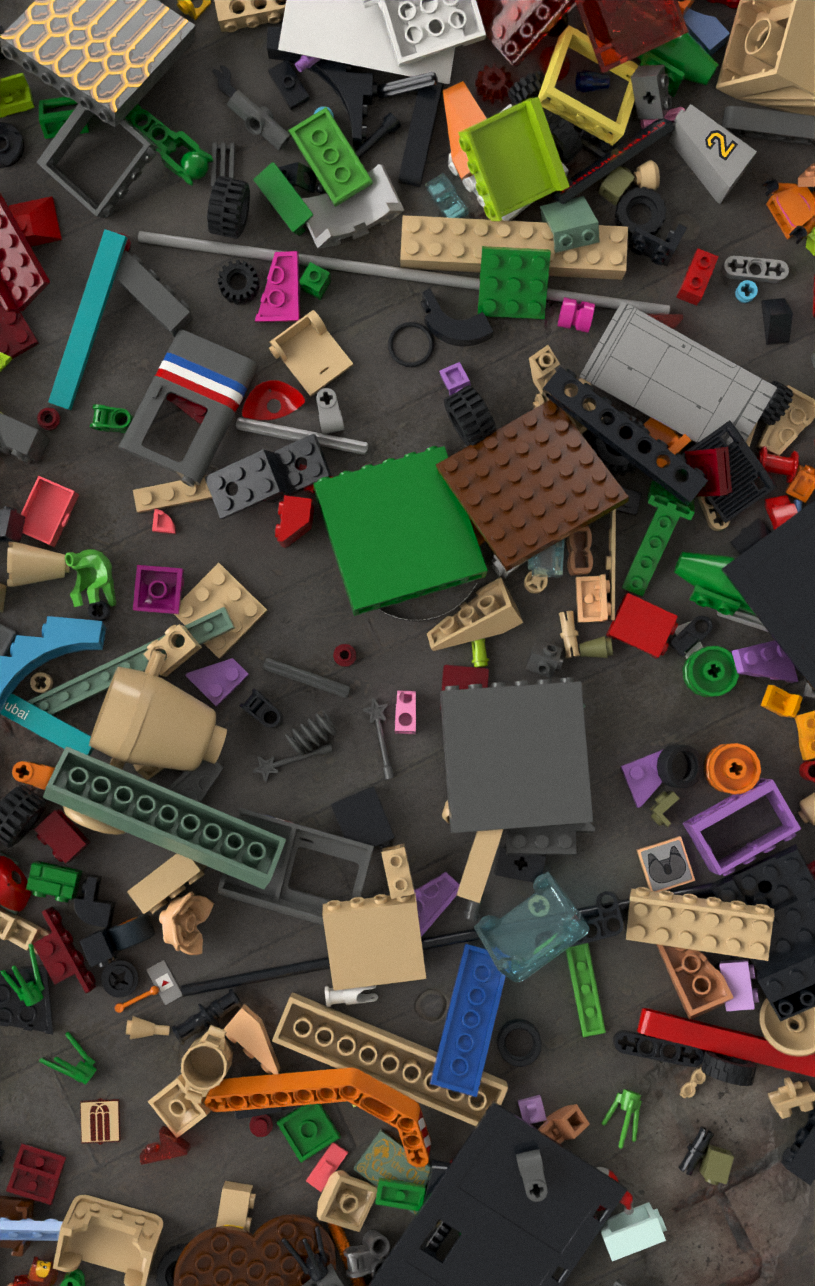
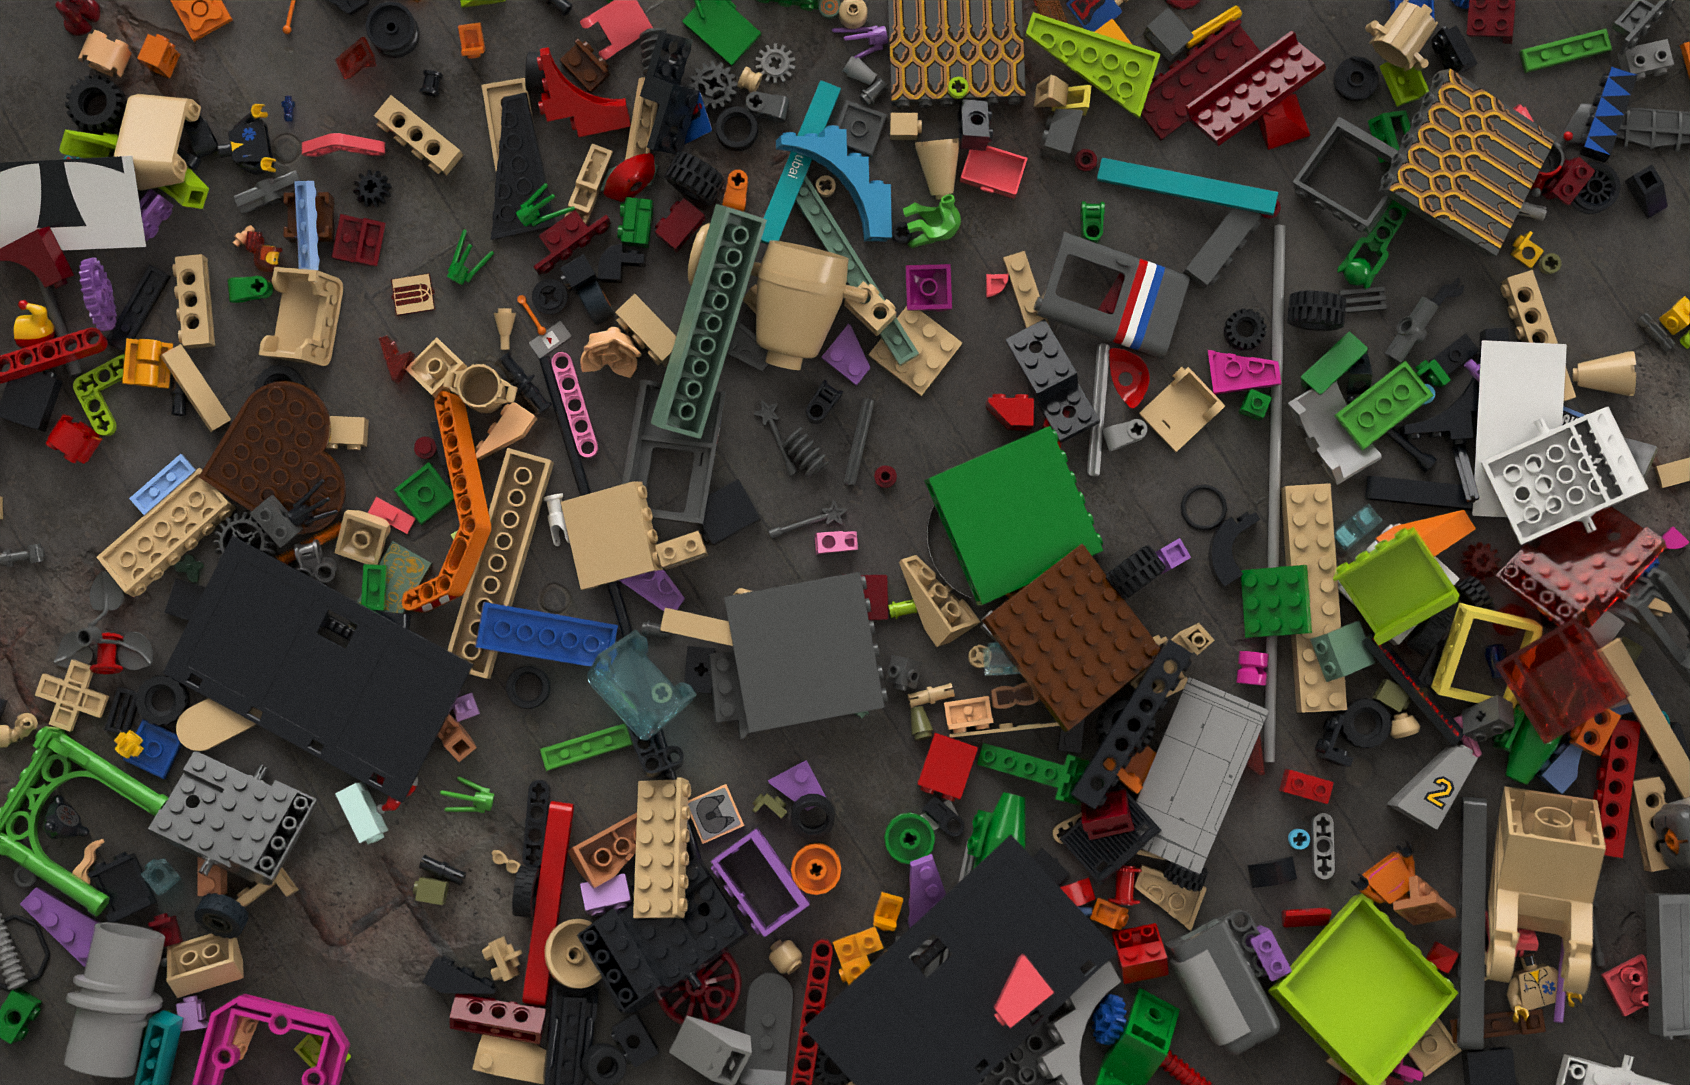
camera: 80 degrees right, 0 degrees up
(224, 968) = (582, 413): none -> bright pink beam
(303, 104) = (1436, 374): none -> green bracket
(532, 1172) = (413, 707): dark grey piece -> none

